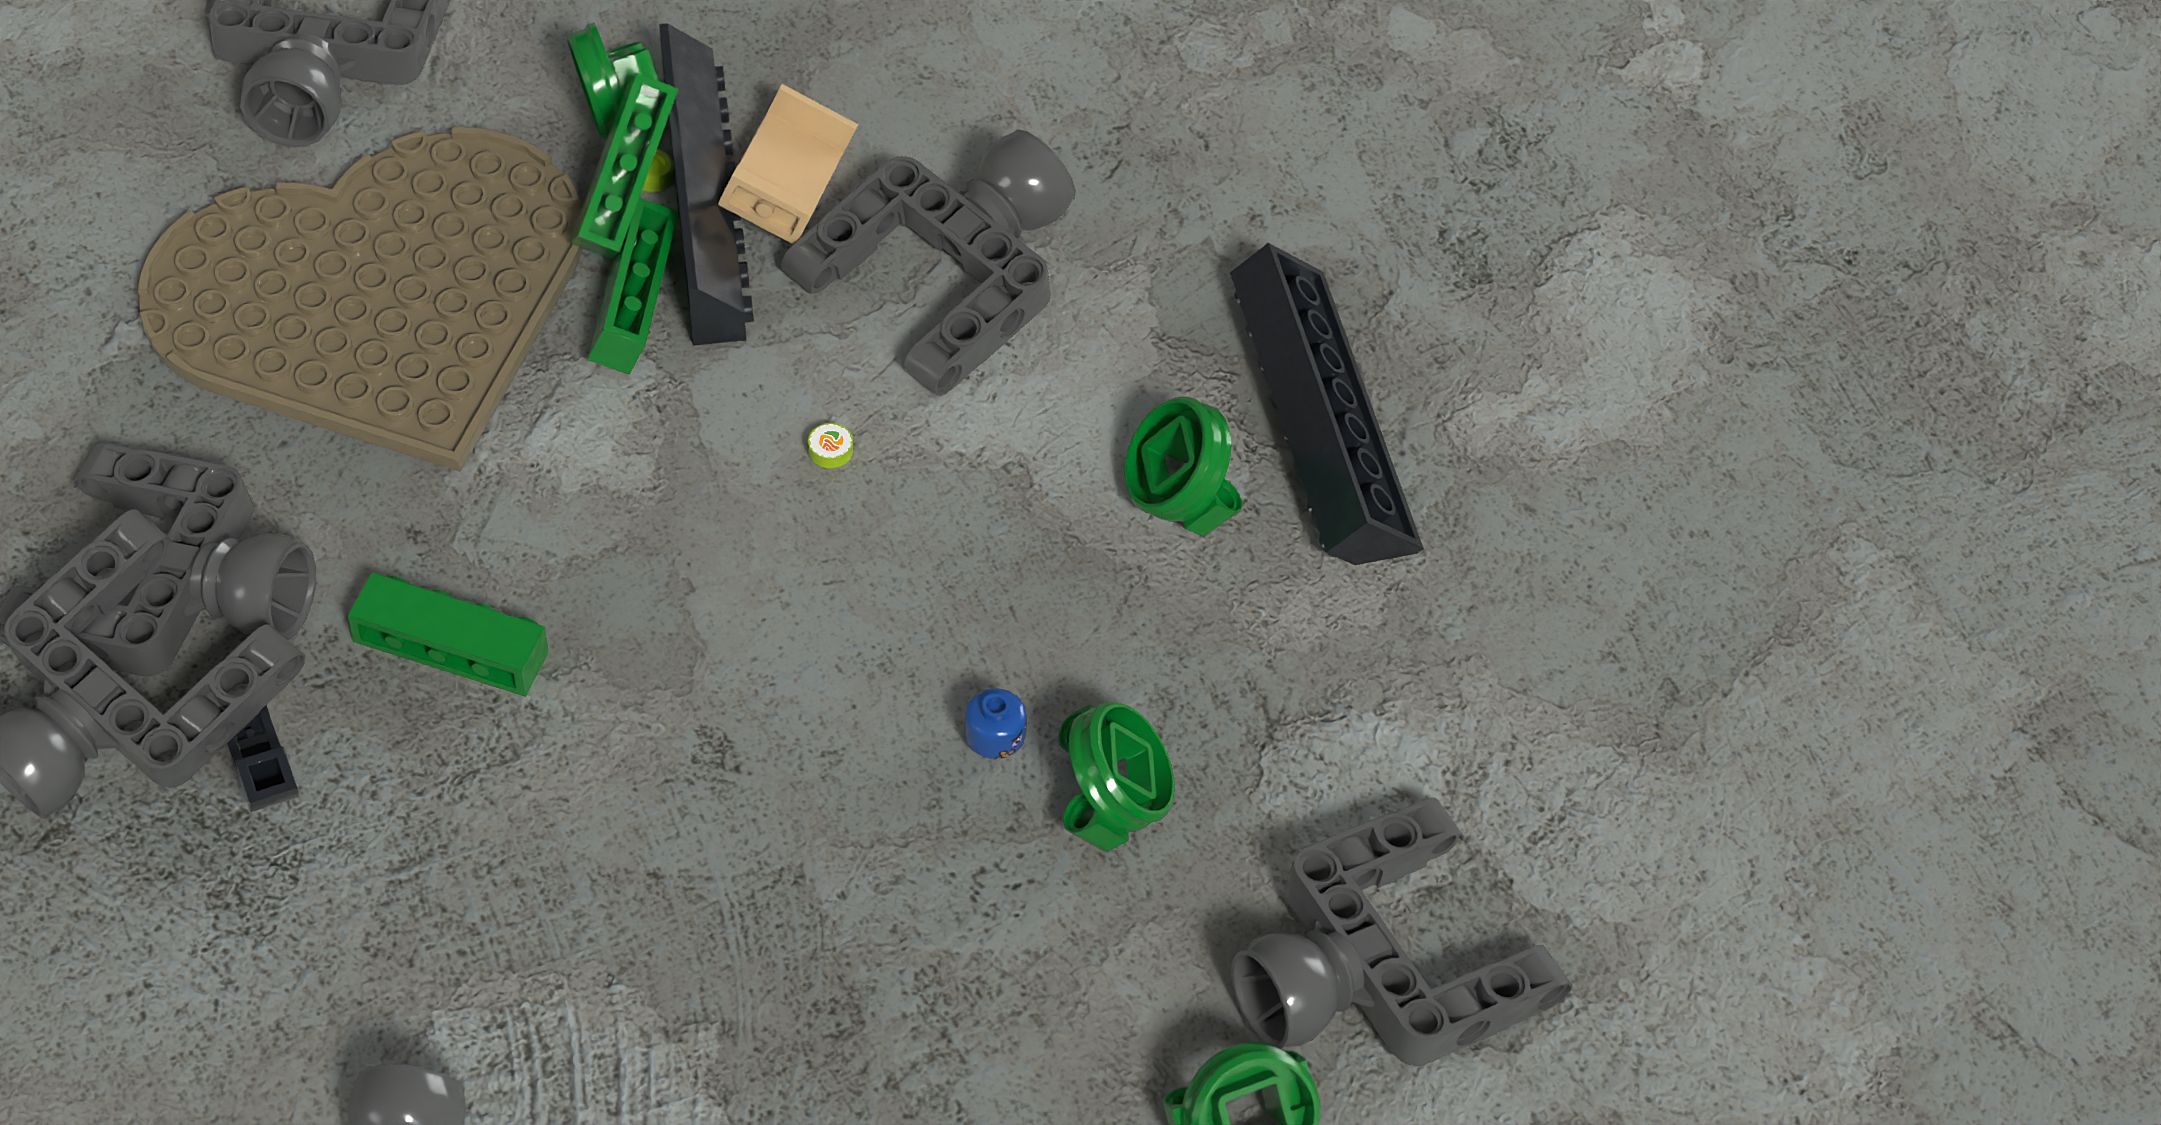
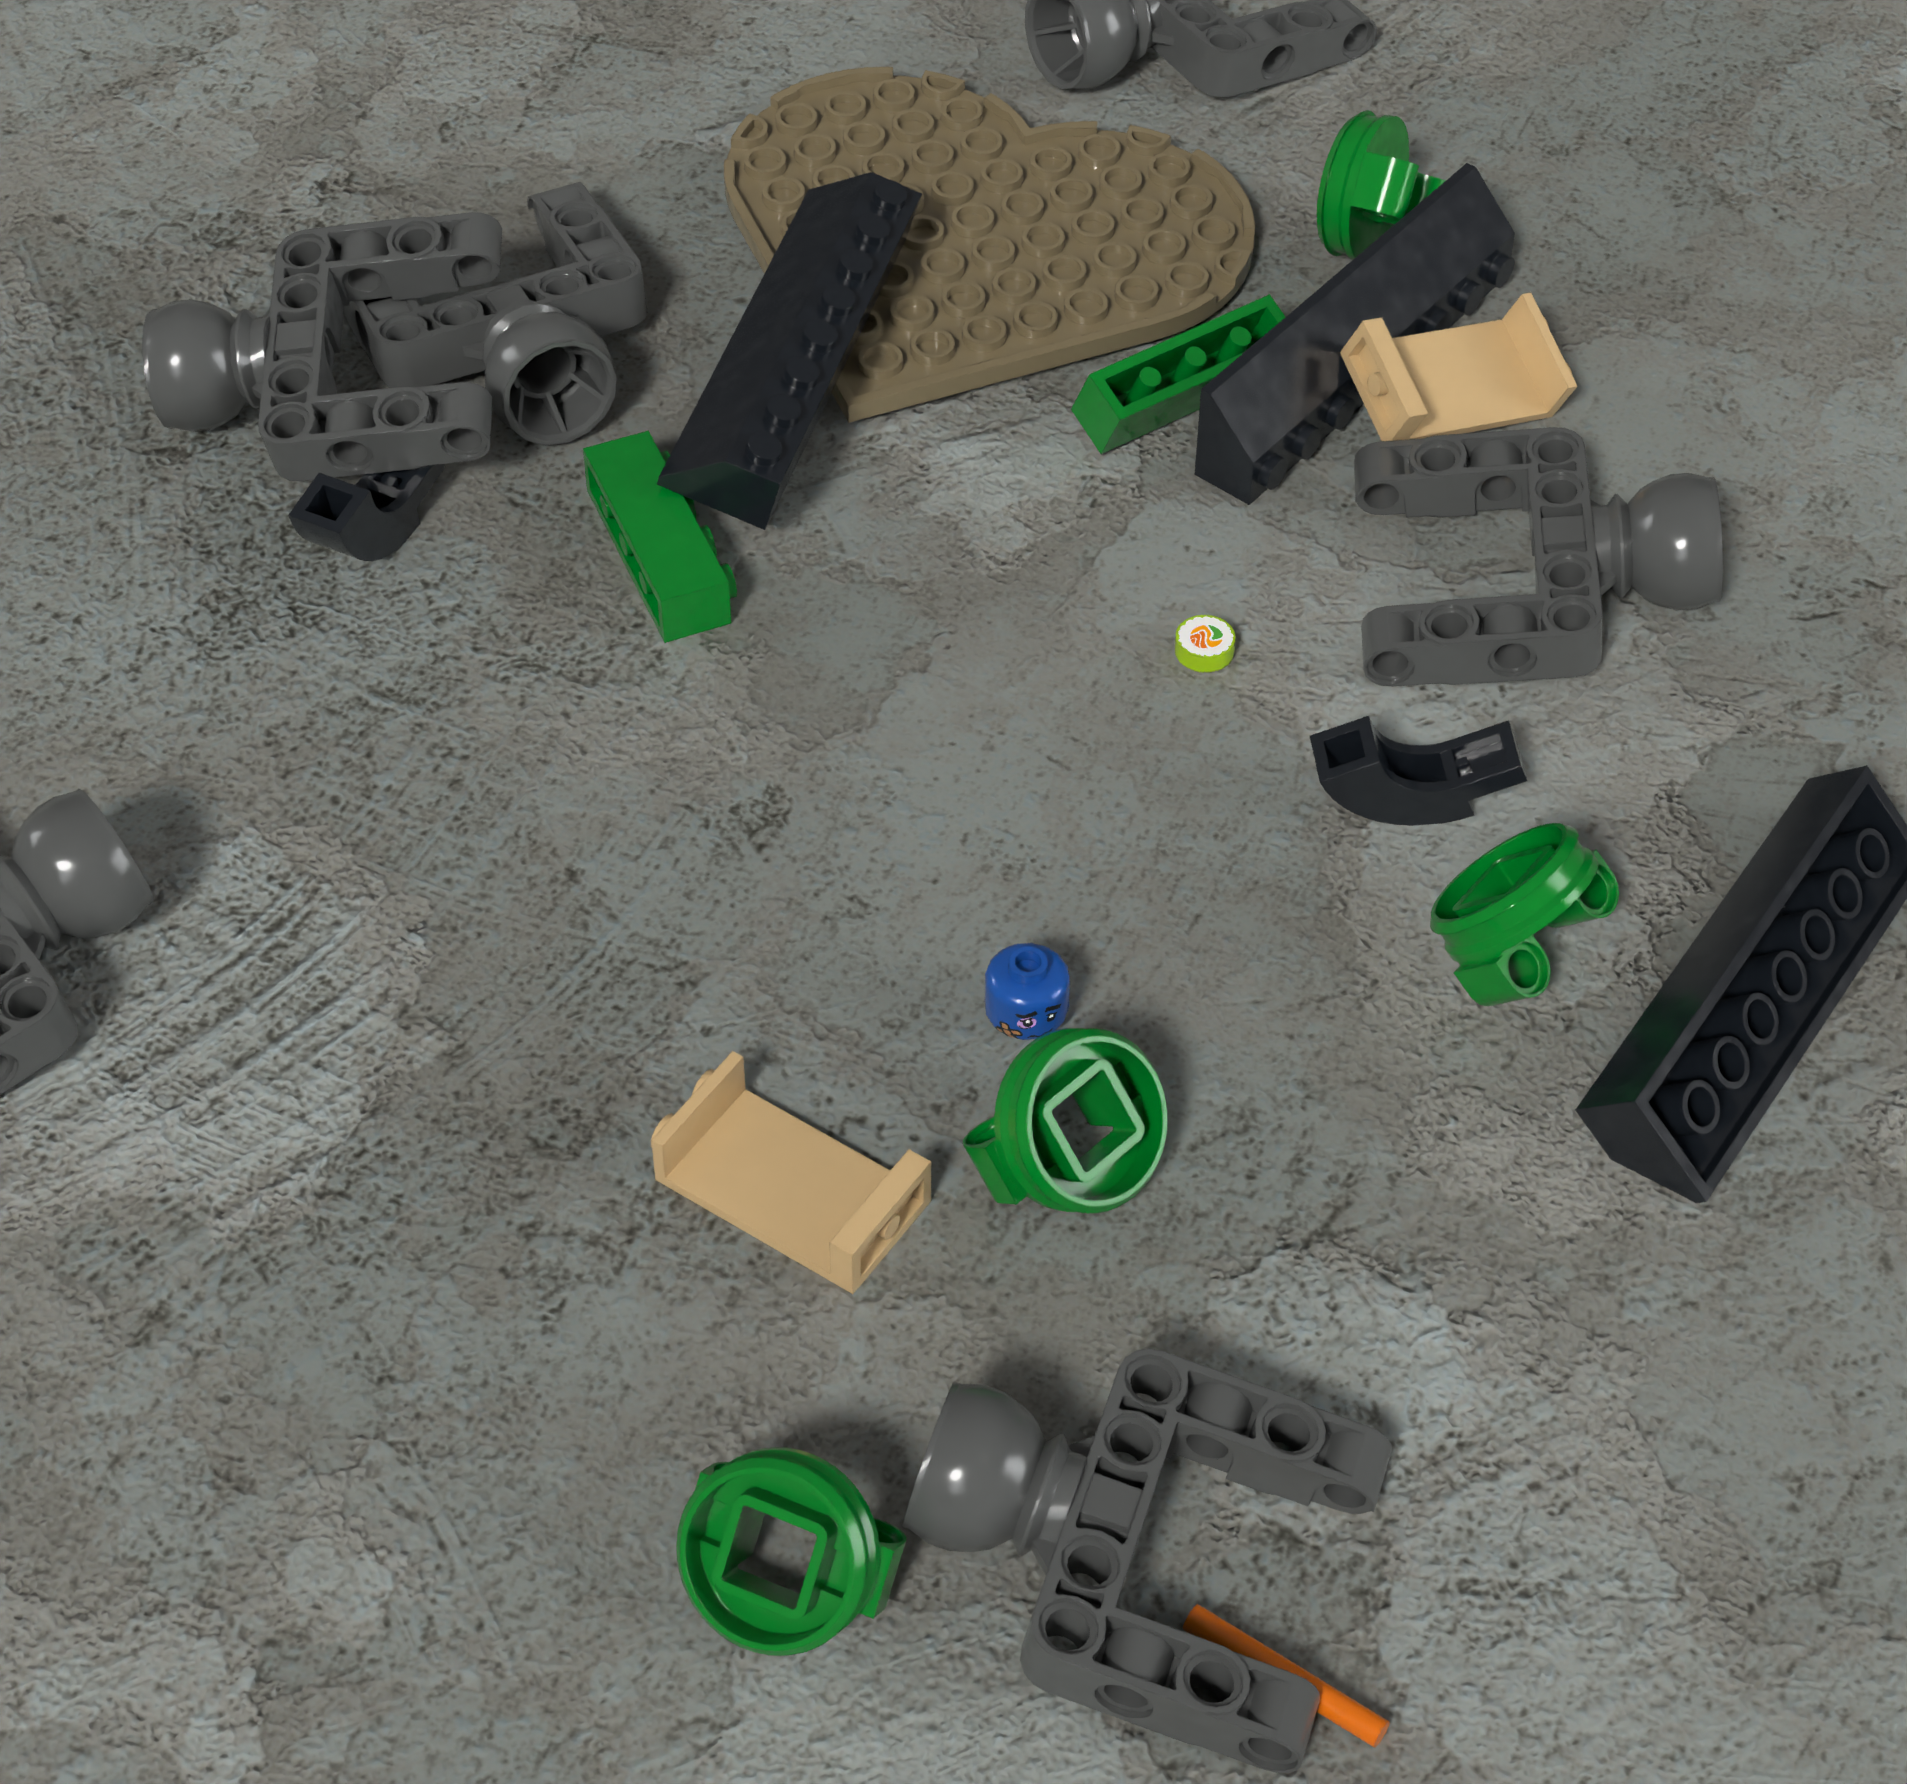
camera: 50 degrees right, 5 degrees down
(396, 446) = (791, 347): none -> black slope
(624, 165) = (1286, 247): green brick -> none
(996, 933) = (787, 1178): none -> tan panel
(1047, 430) = (1414, 782): none -> black arch
(1473, 961) = (1333, 1703): none -> orange bar

